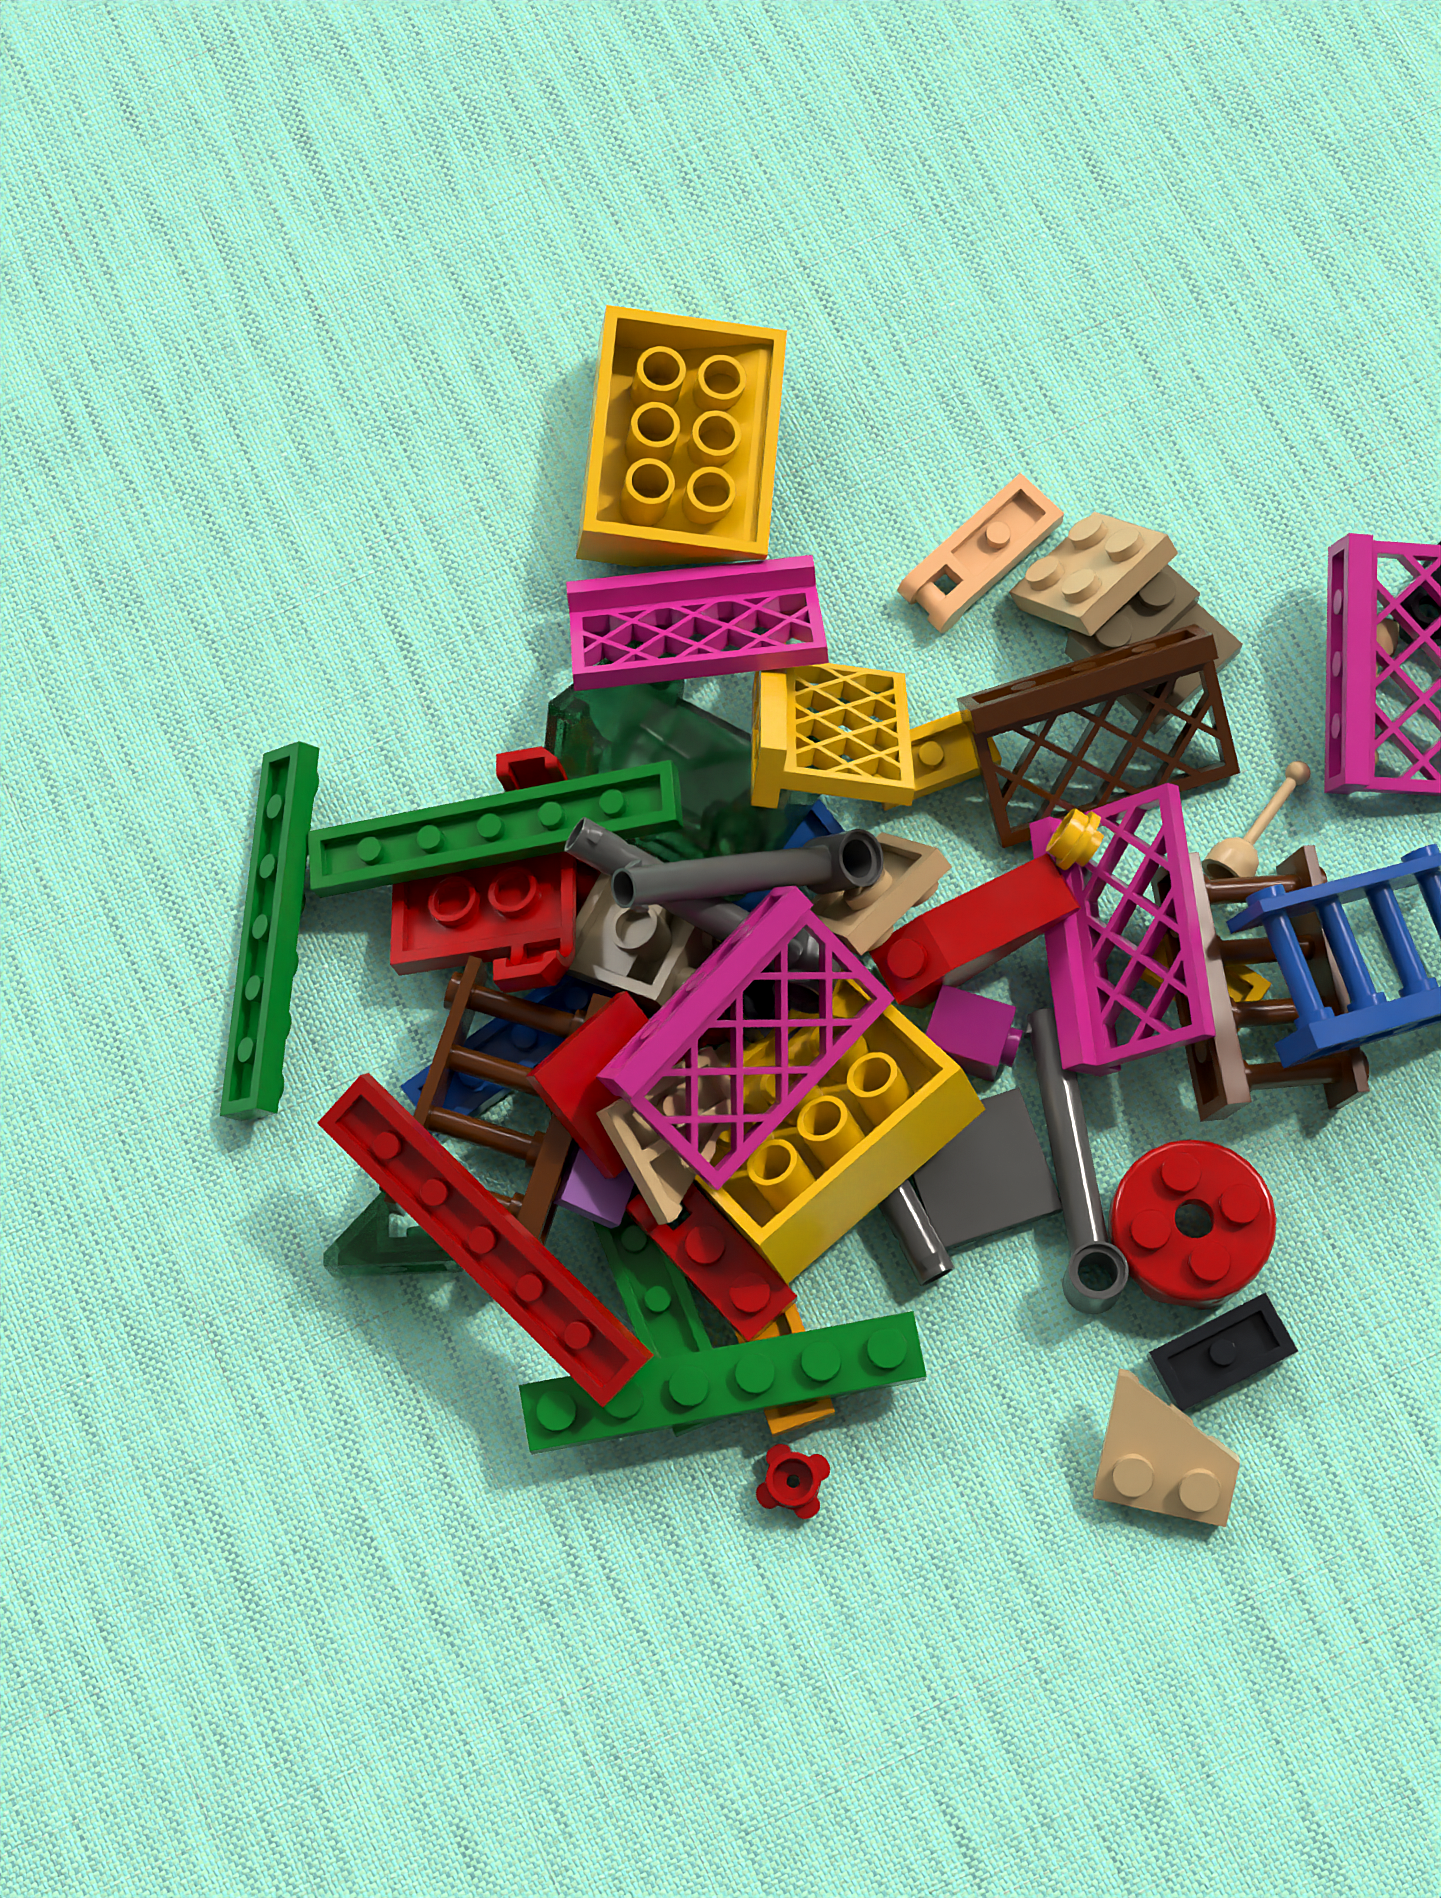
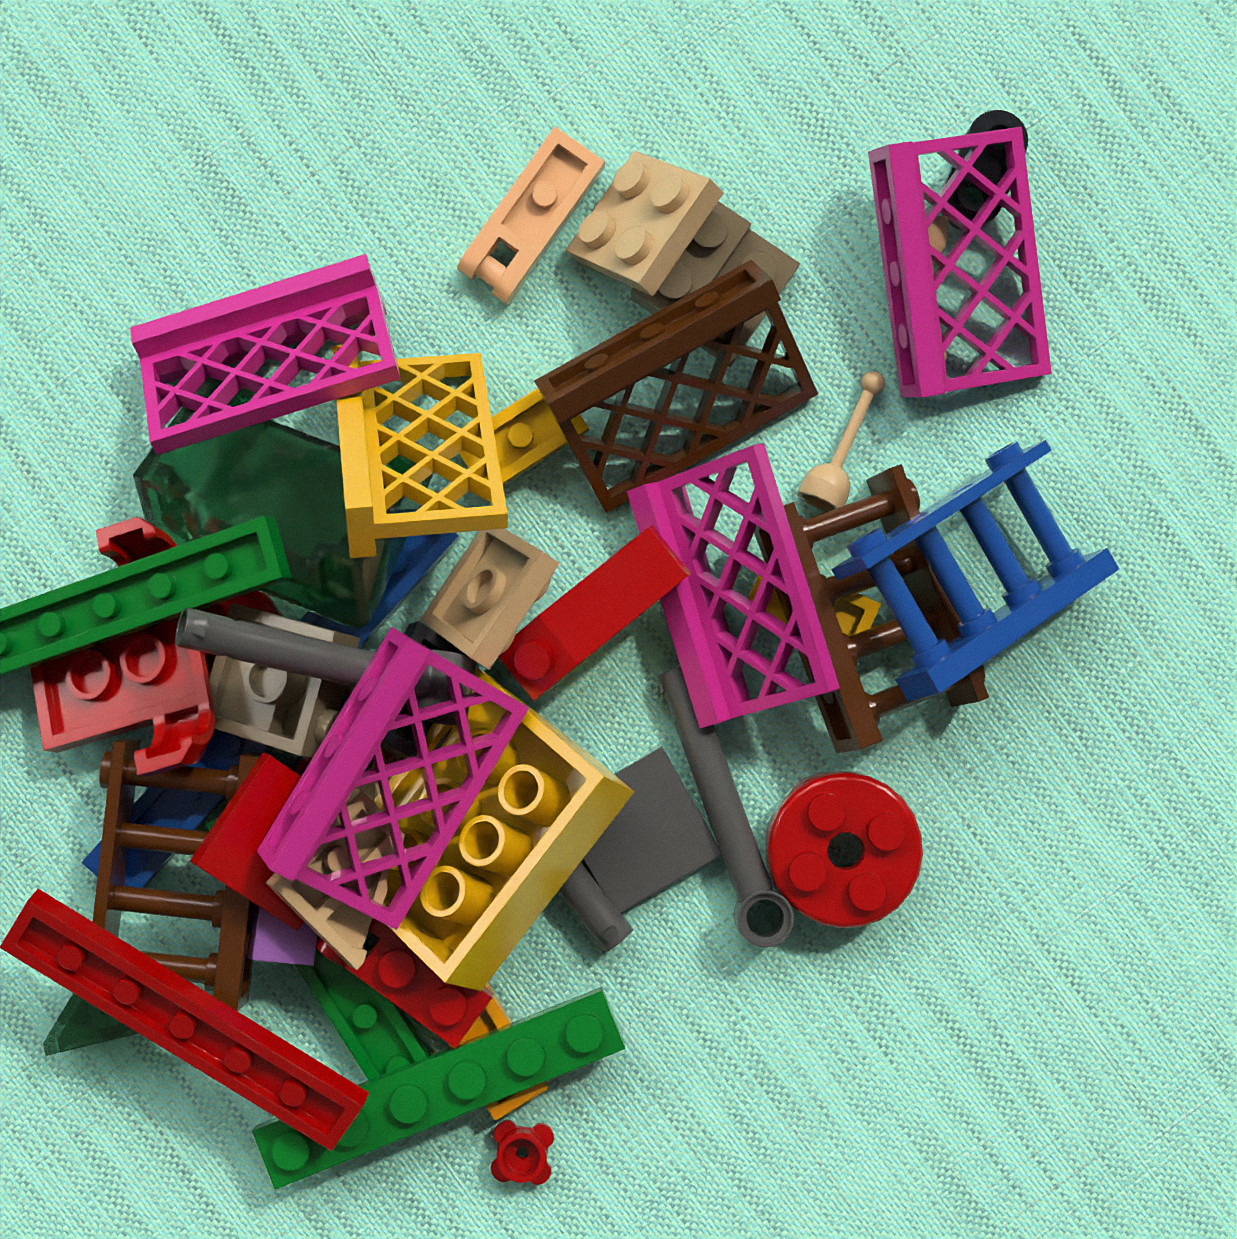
camera: 15 degrees left, 15 degrees up
(681, 440) = (211, 154): yellow slope -> none
(822, 864) = (427, 582): dark grey piece -> none
(974, 1031) = (609, 707): magenta brick -> none
(1075, 839) = (673, 508): yellow plate -> none
(1162, 1460) = (852, 1071): tan wing -> none
(1222, 1353) = (890, 962): black plate -> none

